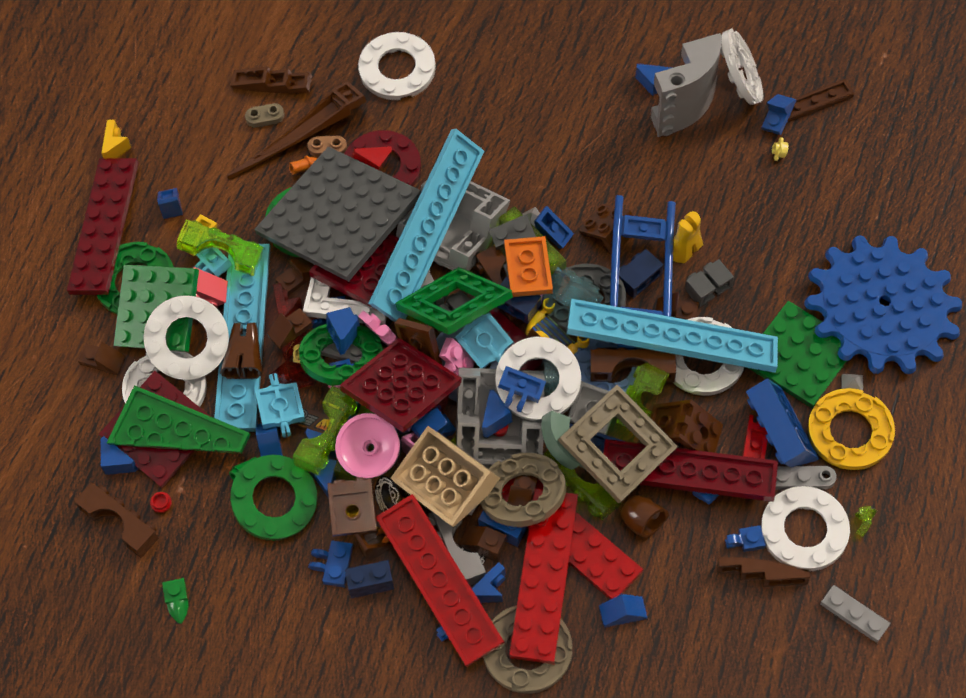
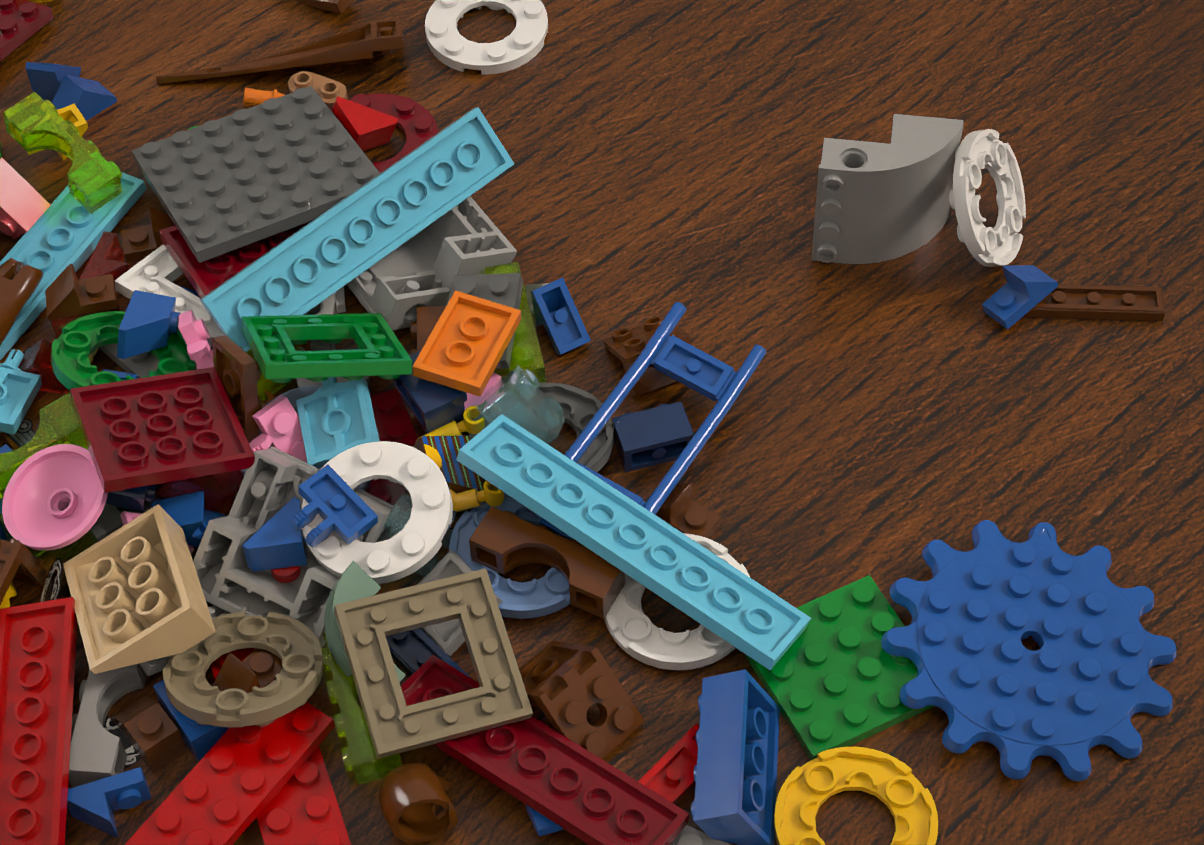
camera: 25 degrees right, 10 degrees down
(193, 206) = (86, 94): none -> blue slope
(213, 261) = (49, 173): medium azure hinge -> none
(264, 115) = (262, 22): dark tan plate -> none
(647, 379) = (547, 588): clear neon green arch -> none
(687, 238) = (755, 410): yellow piece -> none
(713, 278) = (773, 493): dark grey piece -> none
(780, 149) = (991, 346): light yellow plate -> none
(852, 381) = (906, 749): light grey slope -> none

